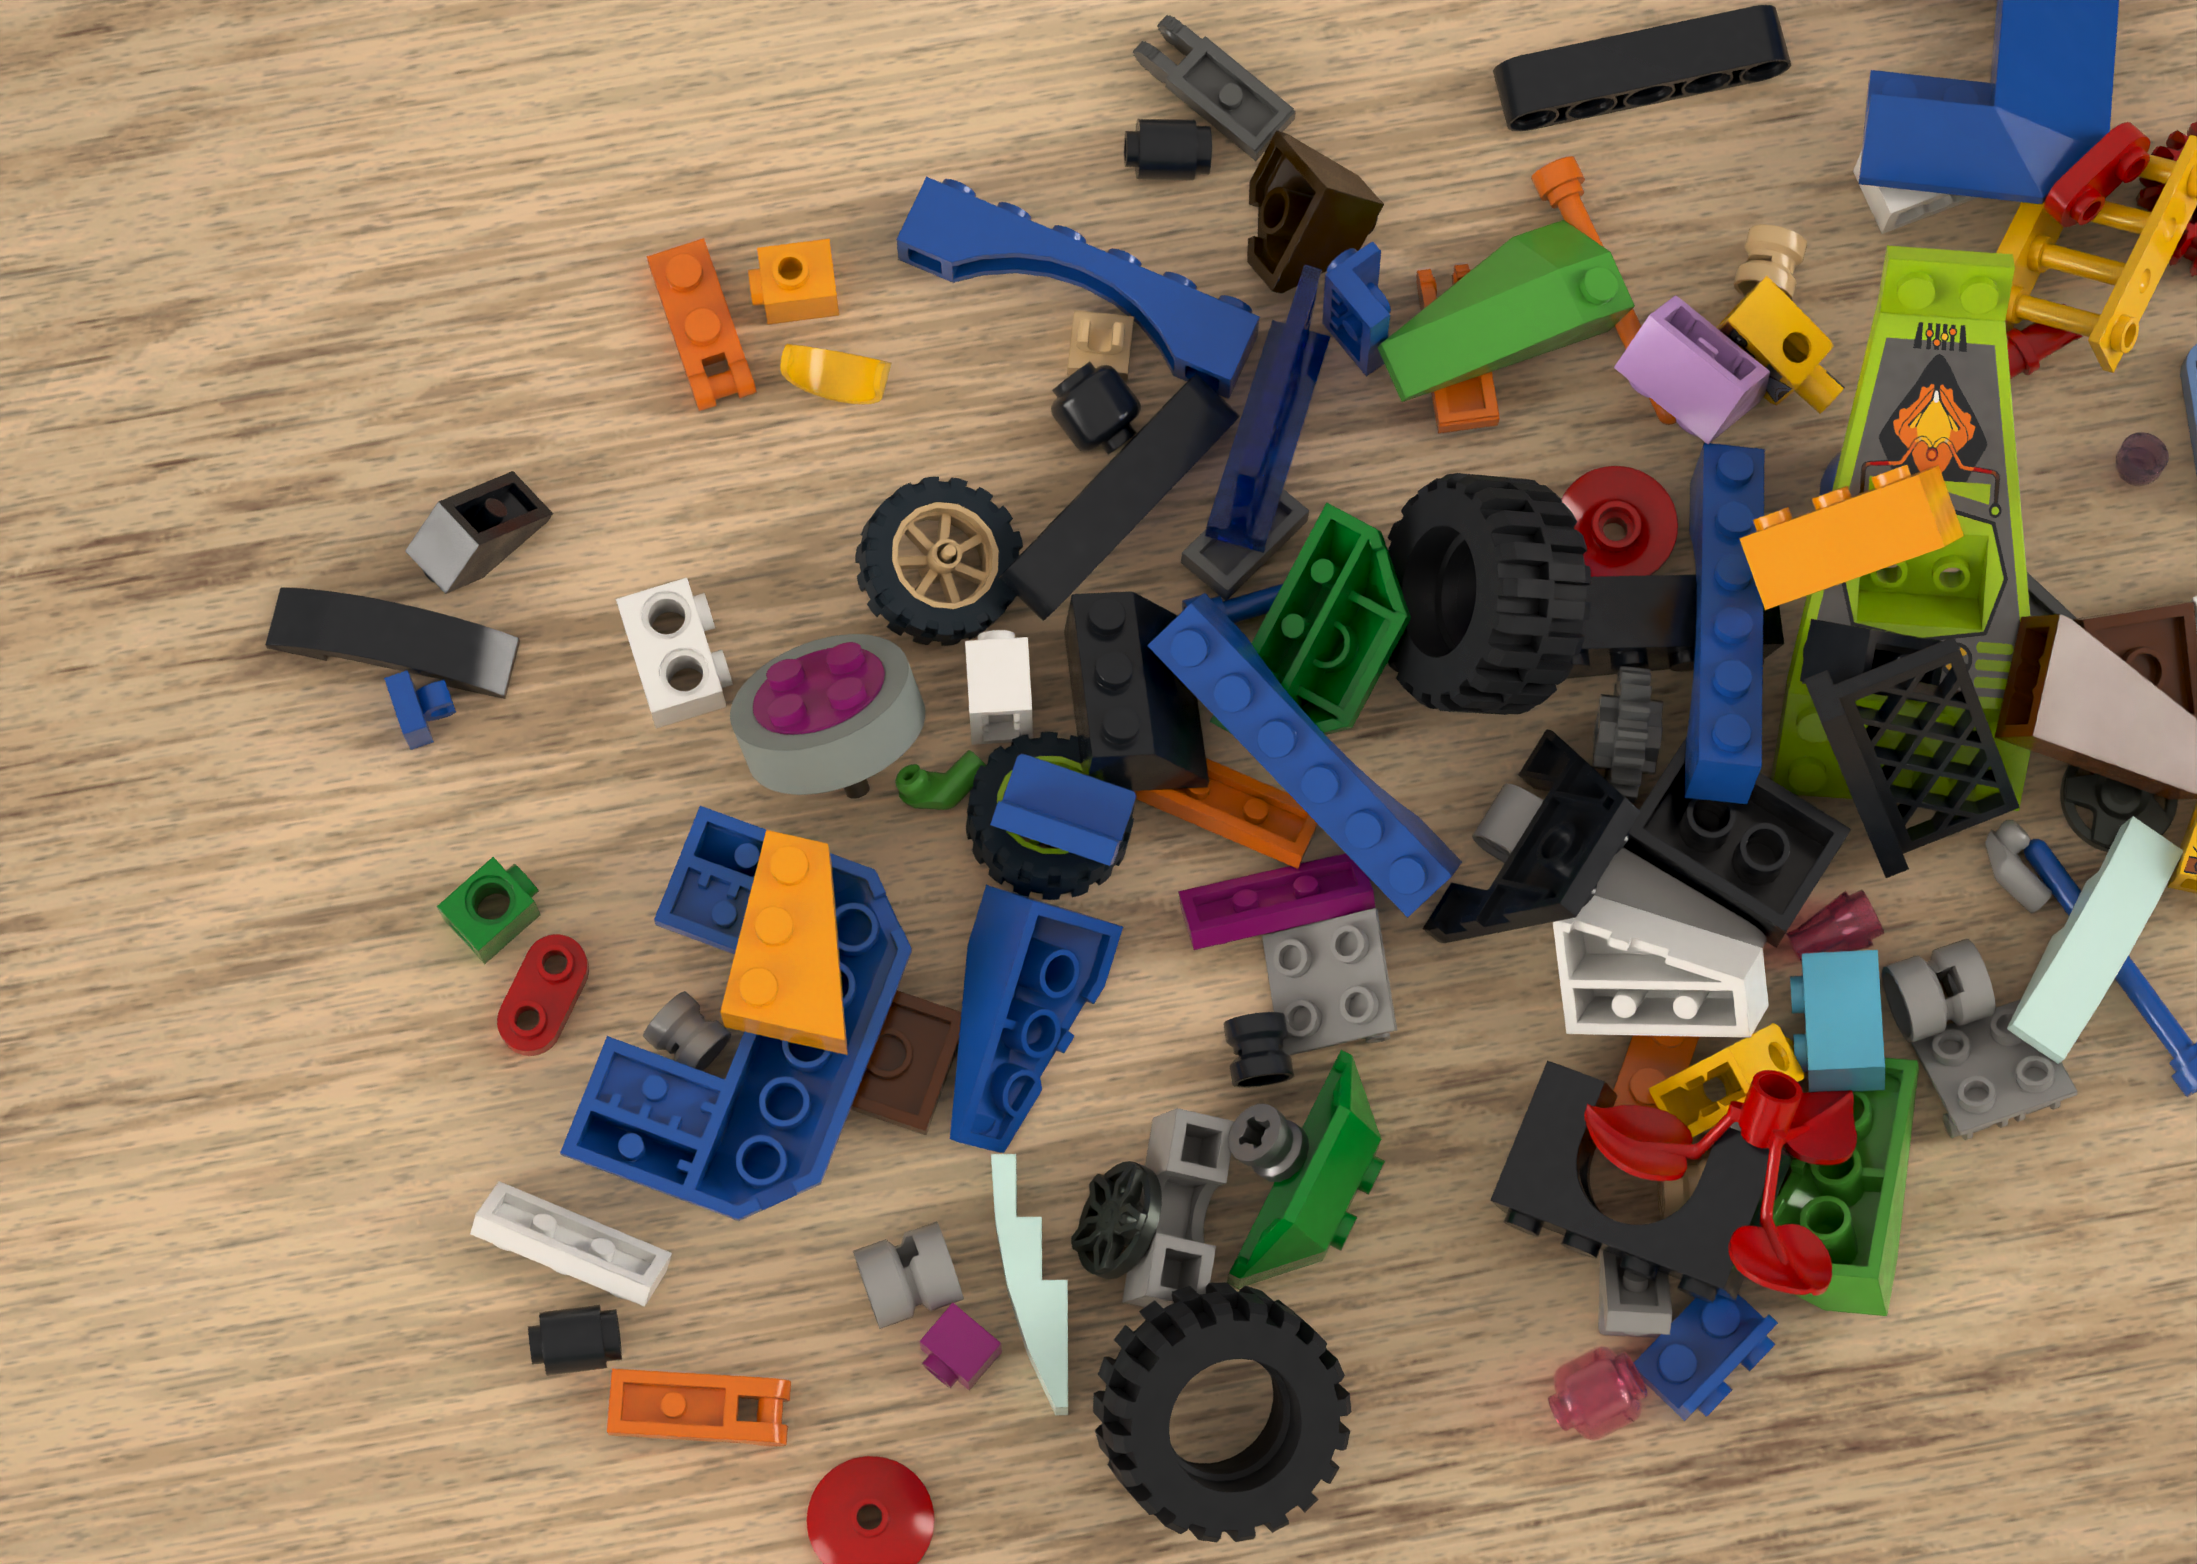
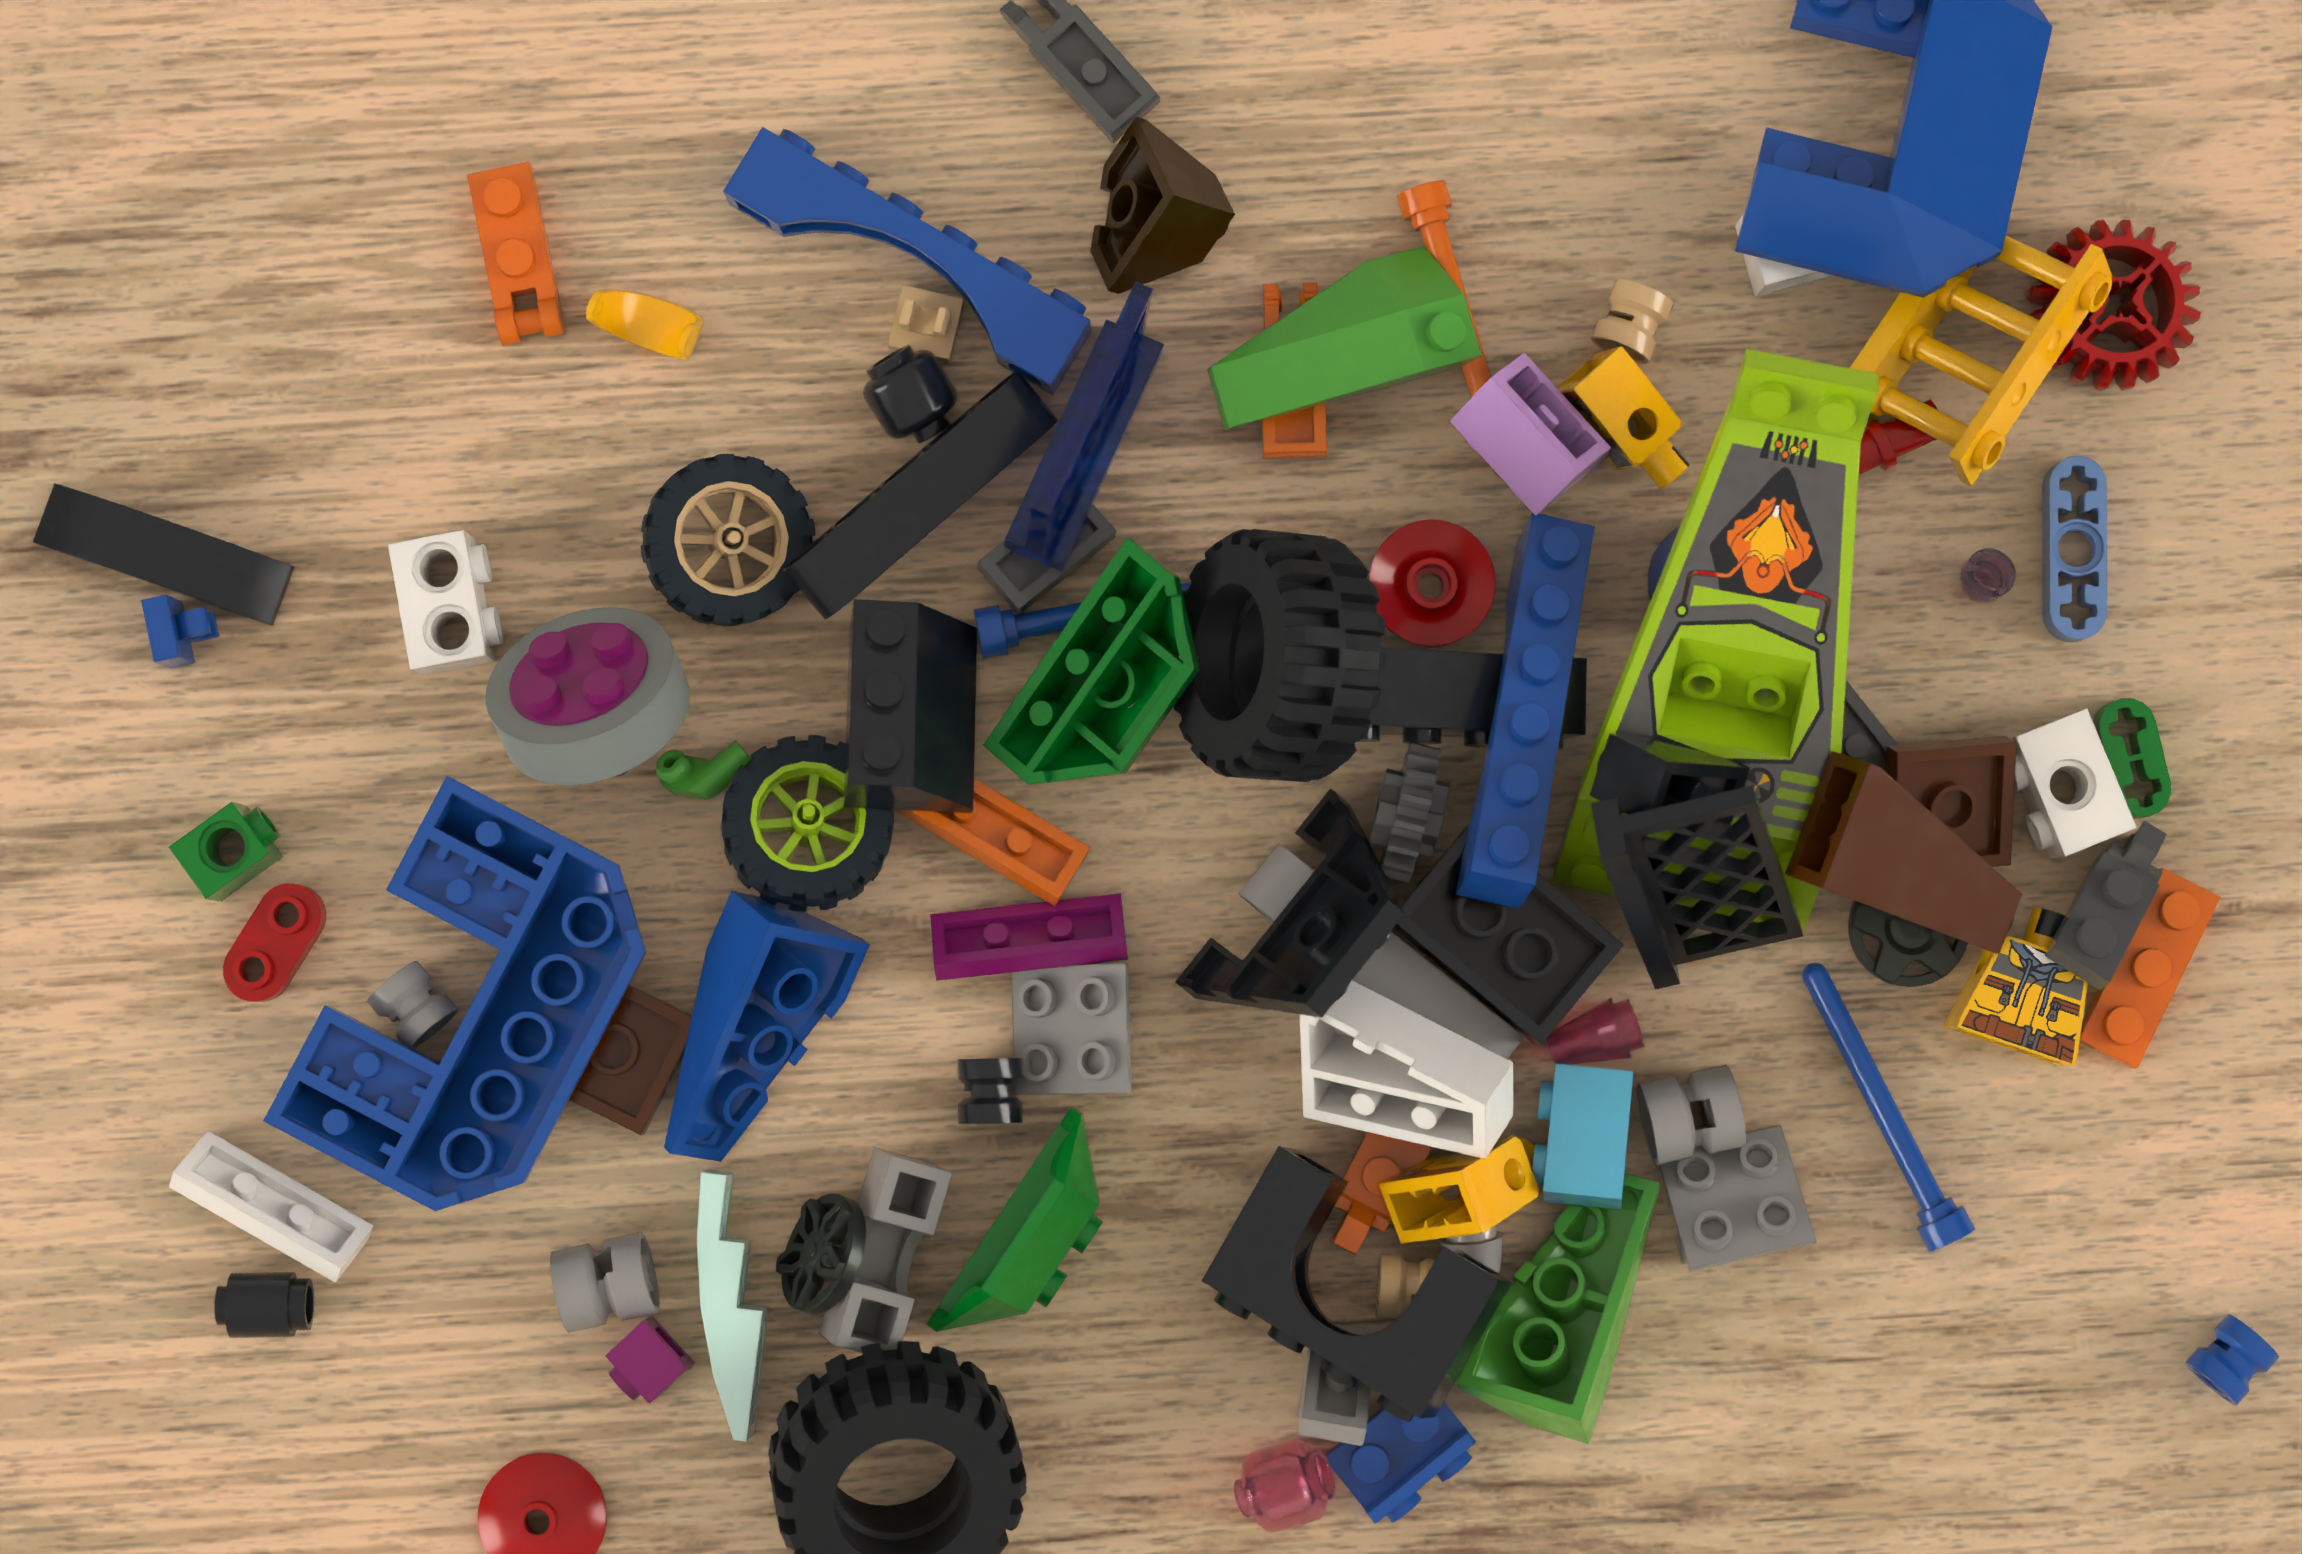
camera: 10 degrees right, 10 degrees up
(476, 531) = (258, 449): black slope -> none
(696, 1407) = (378, 1386): orange plate -> none
(787, 953) = (514, 945): light orange wedge -> none
(795, 281) = (616, 220): light orange brick -> none
(999, 687) = (769, 685): white brick -> none
(1065, 809) = (814, 832): blue panel -> none
(1168, 149) = (1022, 122): black brick -> none
(1246, 697) = (1136, 884): blue arch -> none
(1268, 1142) = (981, 1200): flat silver wheel -> none
(1355, 306) = (1189, 317): blue bracket -> none
(1641, 68) = (1528, 90): black beam -> none
(1774, 1114) = (1538, 1244): red plant -> none
(1850, 534) = (1665, 653): light orange wedge -> none
(2010, 871) = (1782, 990): light grey arm -> none
(2083, 188) = (2007, 260): red plate -> none
(2095, 940) = (1860, 1084): light aqua slope -> none

